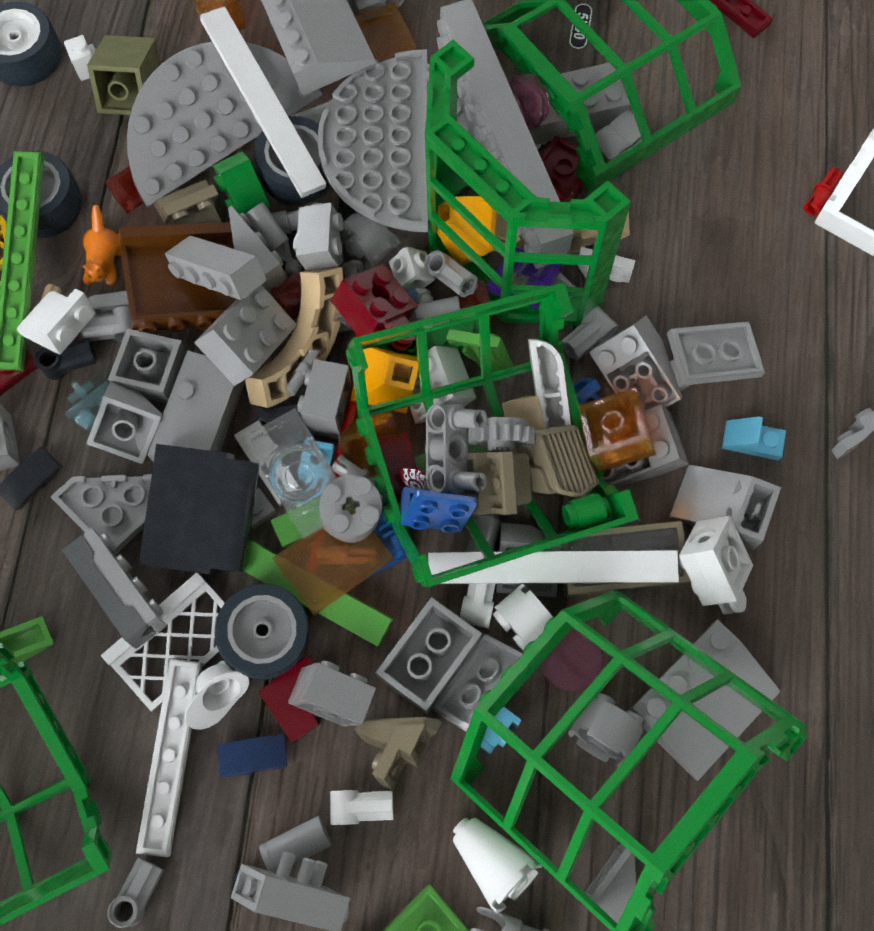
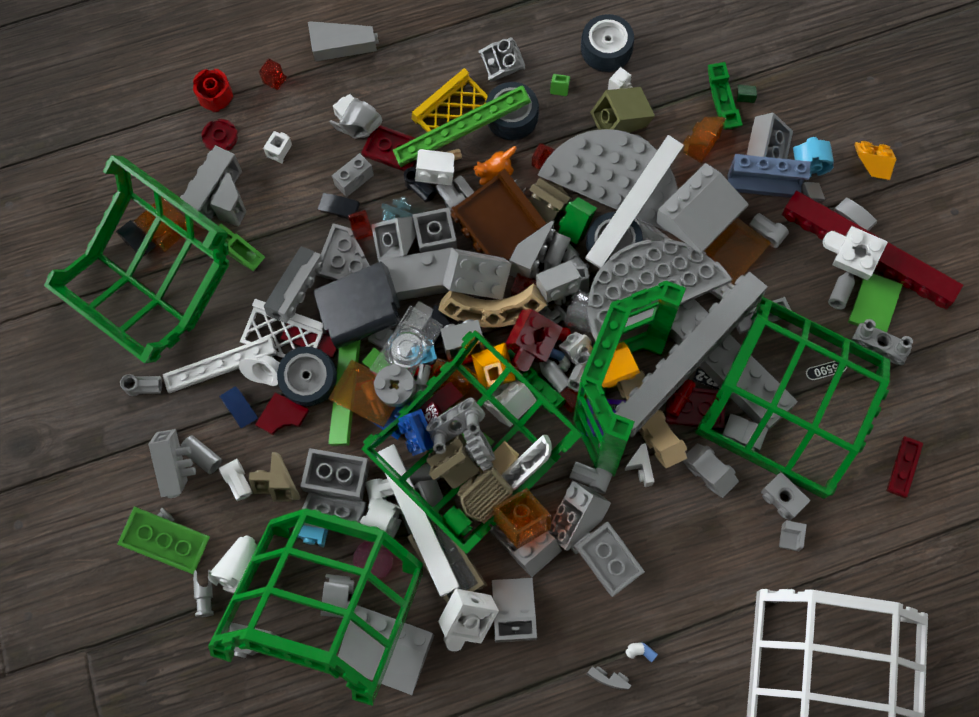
camera: 65 degrees right, 0 degrees up
(37, 128) = (560, 85): none -> bright green slope
(76, 459) = (360, 225): none -> clear red panel
(216, 267) = (505, 234): light grey brick -> none
(224, 586) = (325, 344): none -> dark red tile
(300, 371) = (463, 317): light grey piece -> none
(332, 694) = (286, 430): light grey brick -> none
(499, 356) = (541, 418): bright green wing -> none
(531, 99) = (720, 358): clear pink tile -> none
(586, 389) = (547, 489): blue tile -> none
(655, 192) = (716, 475): none -> light grey brick
(717, 134) = (783, 485): none -> light grey brick
(752, 438) = (571, 613): medium azure slope -> none
(768, 150) = (792, 535): none -> light grey panel
(823, 192) = (775, 585): red axle -> none
(834, 380) = (641, 649): none -> arm

